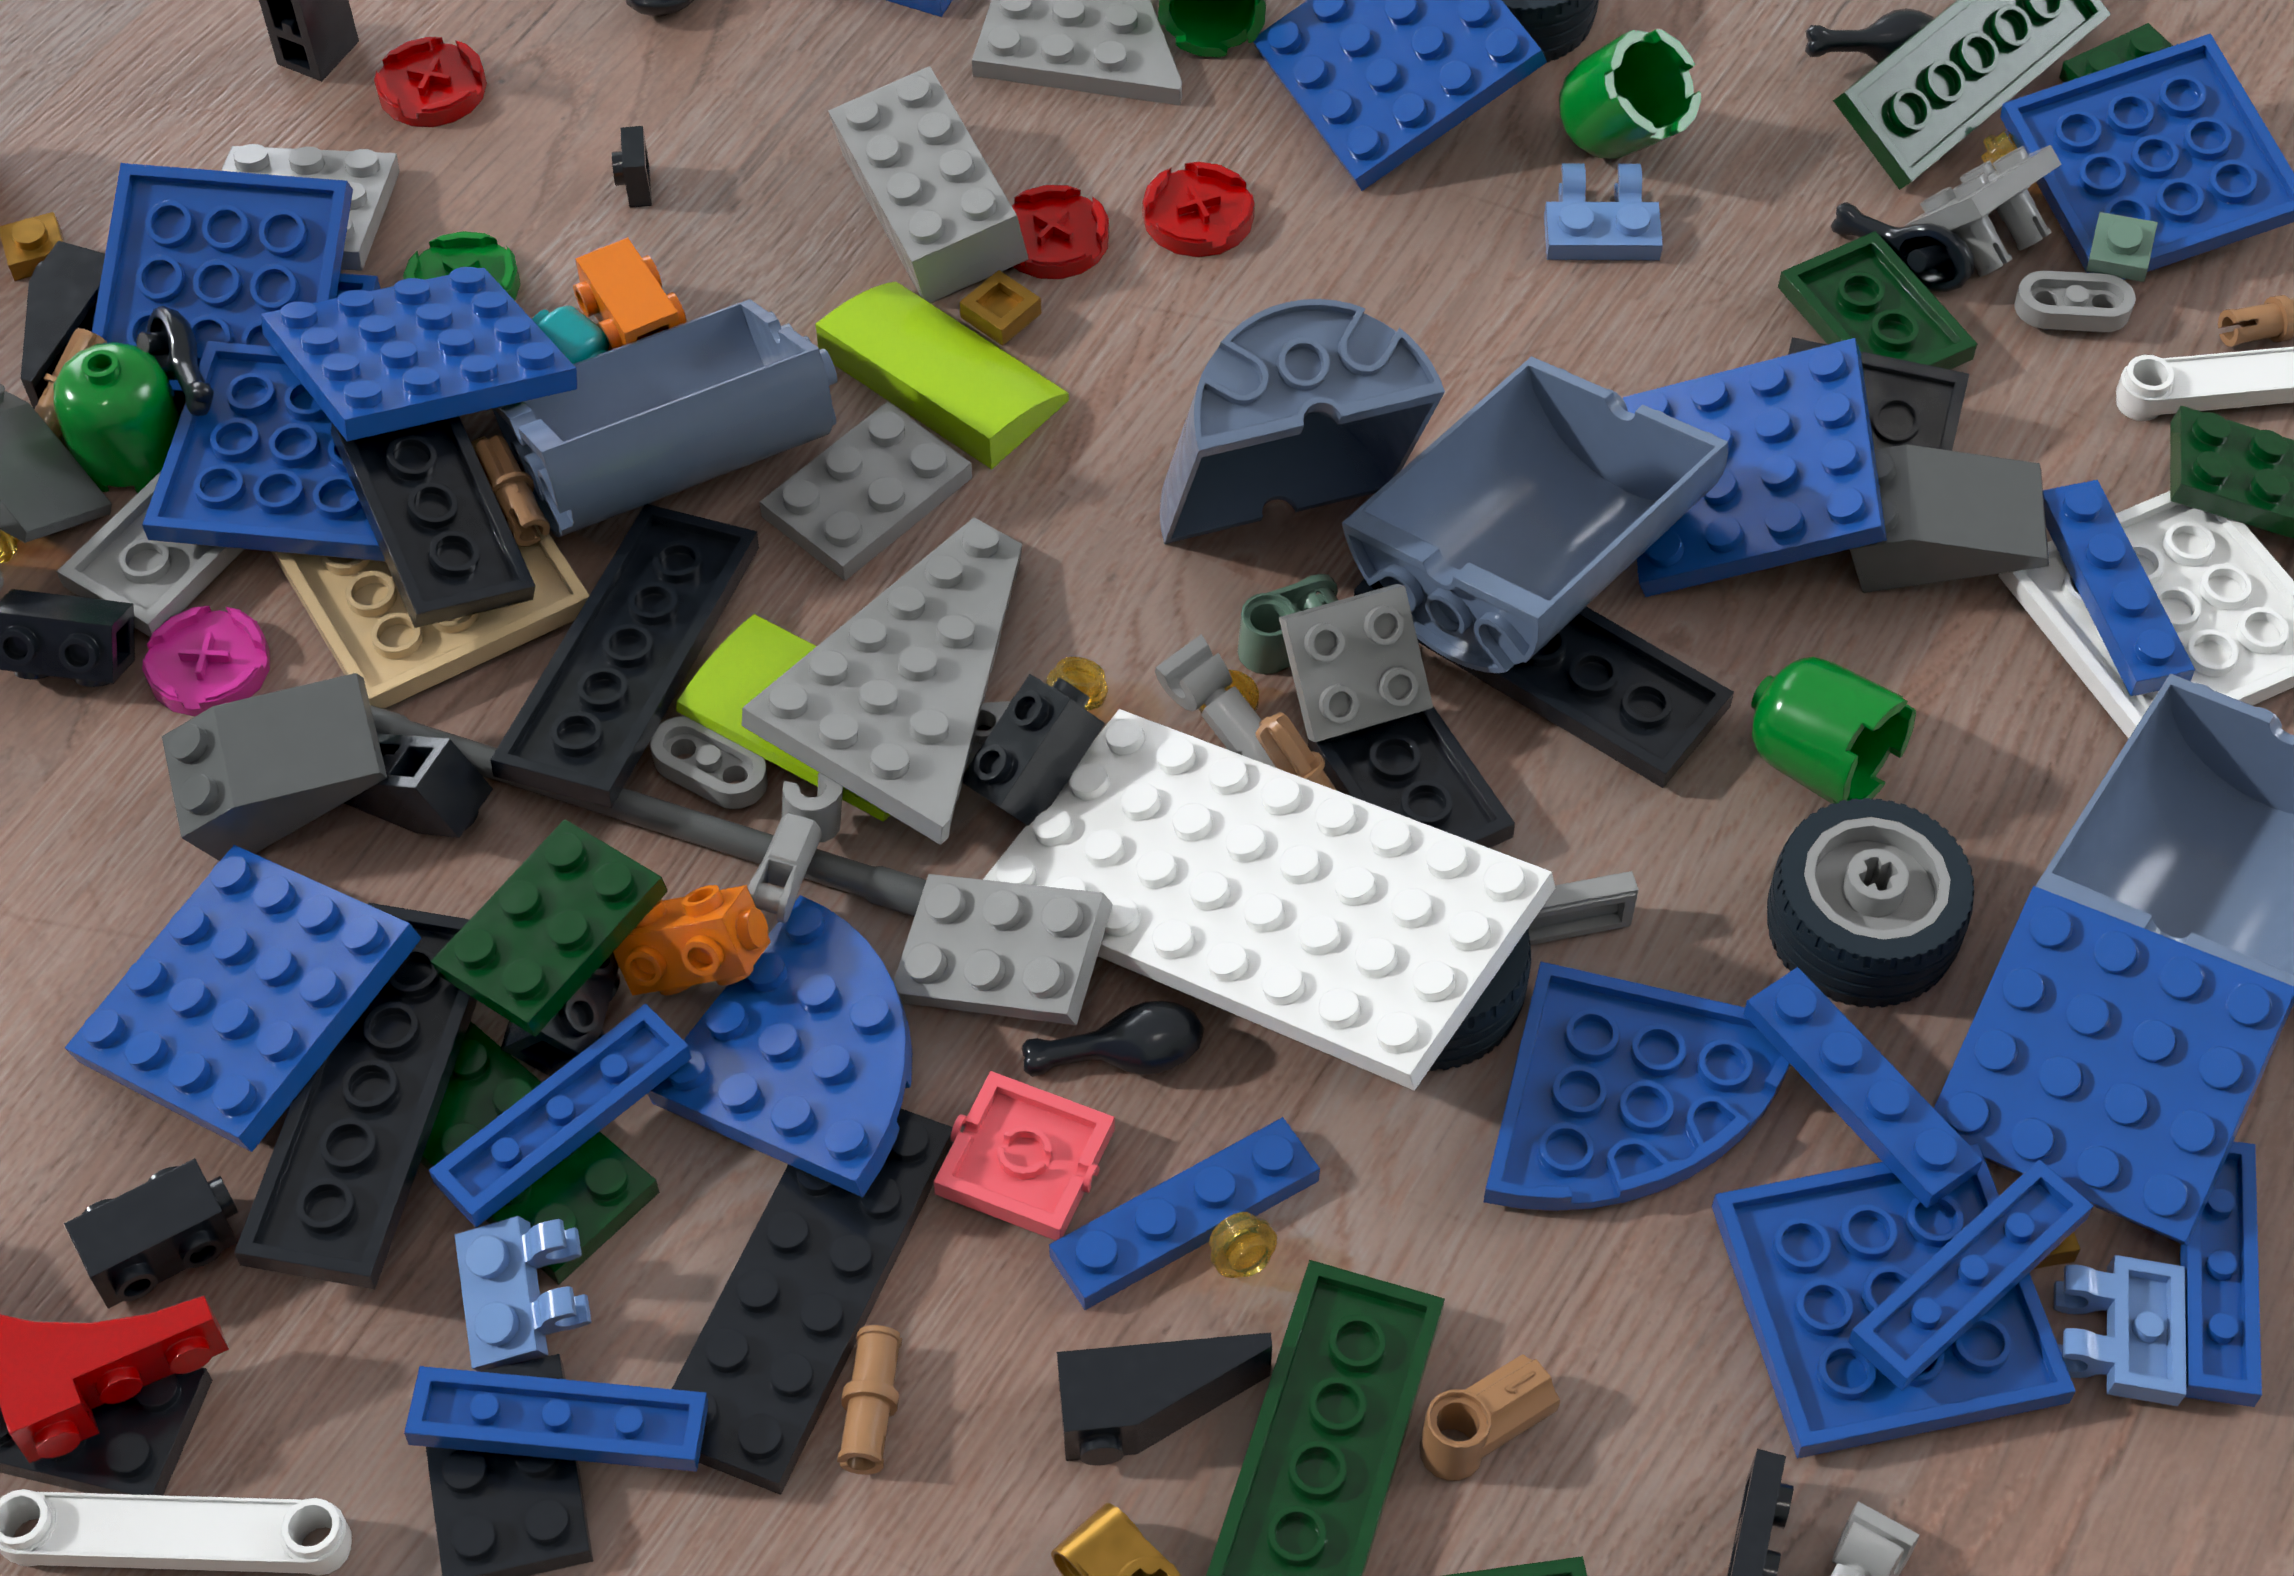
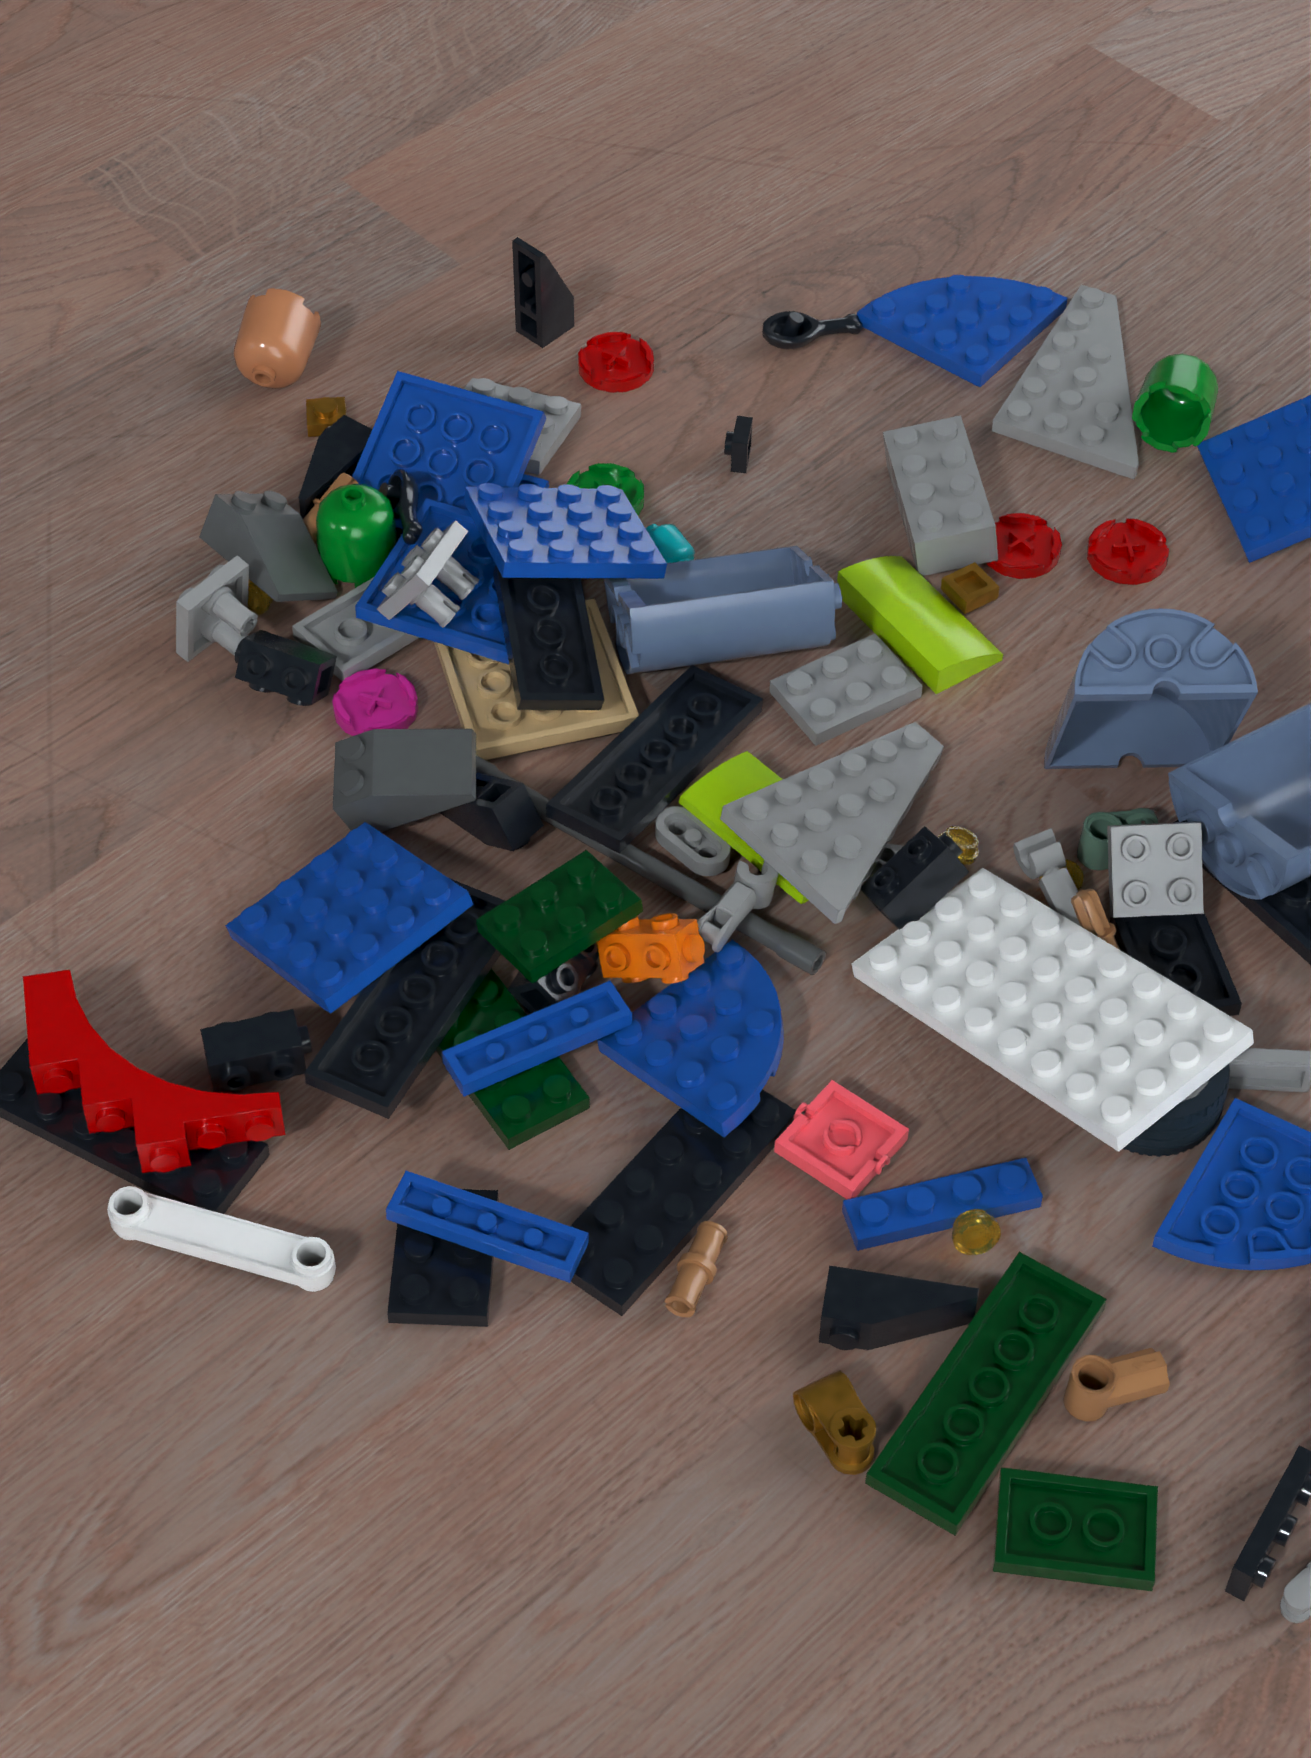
camera: 15 degrees right, 5 degrees down
(227, 451) = (420, 570): none -> light grey plate
(502, 1294) = (470, 1141): medium blue plate -> none
(512, 490) = (604, 636): medium nougat axle -> none
(625, 294) = (712, 525): orange brick -> none
(1002, 948) = (860, 1002): light grey plate -> none
(1138, 1040) = (939, 1084): black piece -> none

